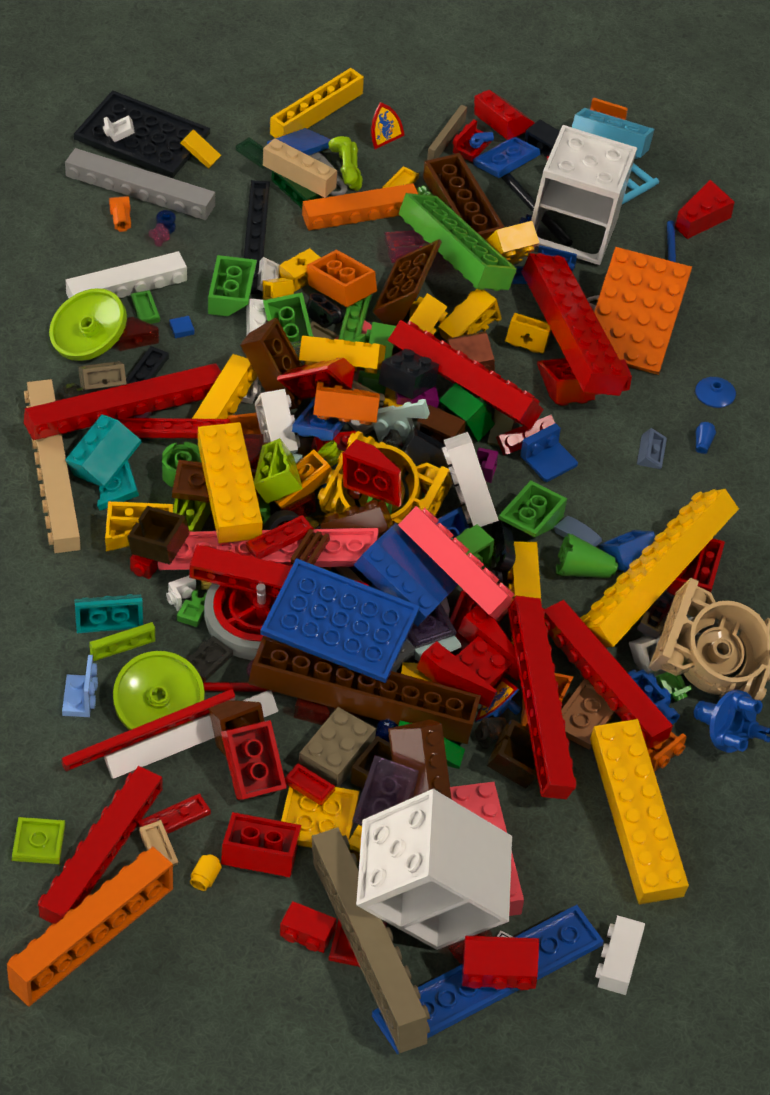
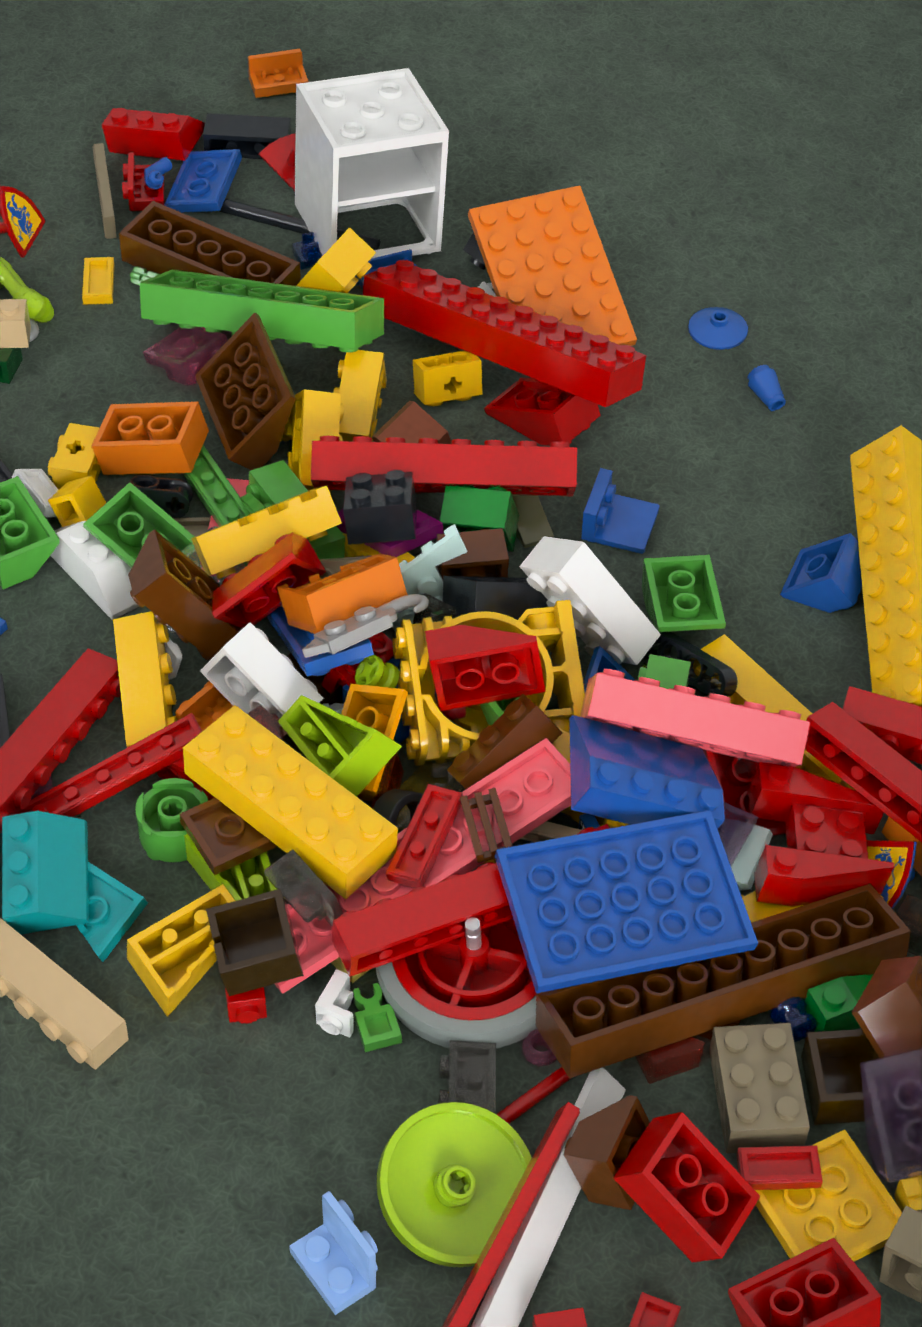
camera: 35 degrees left, 0 degrees up
(108, 613) = (267, 1106): teal slope -> none
(122, 641) = (324, 1138): lime tile -> none
(200, 524) = (303, 889): none -> clear smoke bracket
(341, 421) = (365, 624): none -> light grey plate
(355, 207) = (75, 339): orange brick -> none
(512, 440) = (565, 511): plate -> none
(577, 528) = (756, 593): sand blue slope -> none
(584, 560) = (791, 623): bright green cone -> none
(614, 129) = (276, 89): medium azure brick -> none
(652, 449) = (720, 438): sand blue slope -> none
(671, 241) = (490, 178): blue bar -> none
(704, 210) = (500, 122): red wedge -> none

